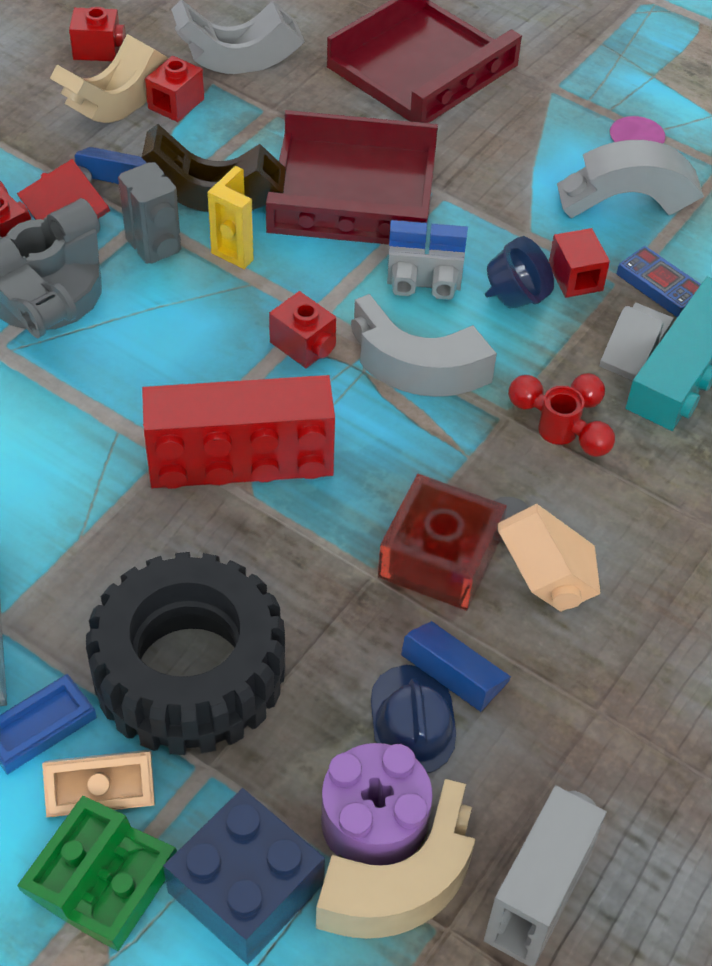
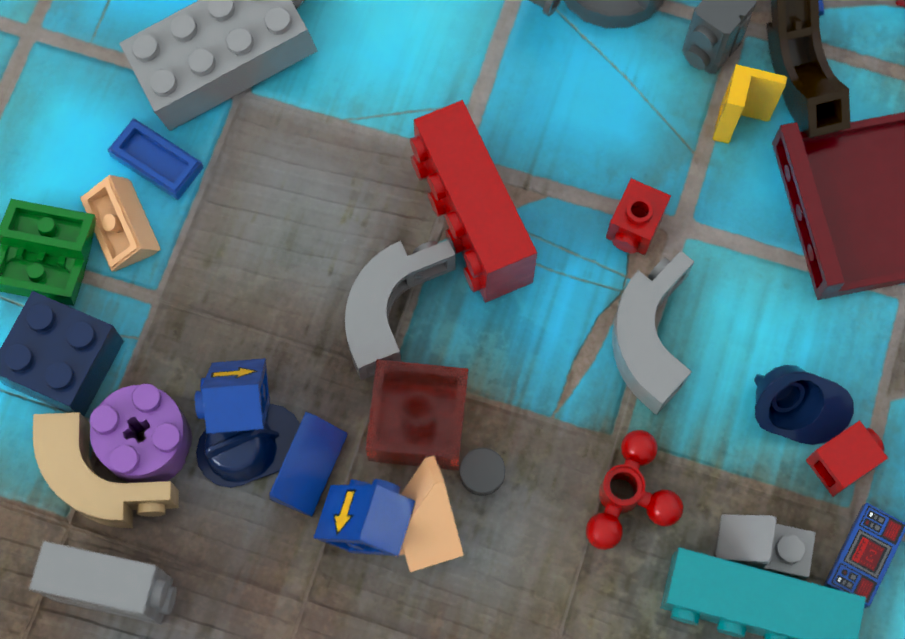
camera: 75 degrees right, 20 degrees up
(198, 707) = (223, 190): black tyre -> none
(308, 559) = (377, 290): none -> light grey arch
(370, 686) = (234, 396): none -> blue brick
(413, 268) = (787, 303): light grey hips -> none
(539, 606) = (365, 517): none -> blue brick

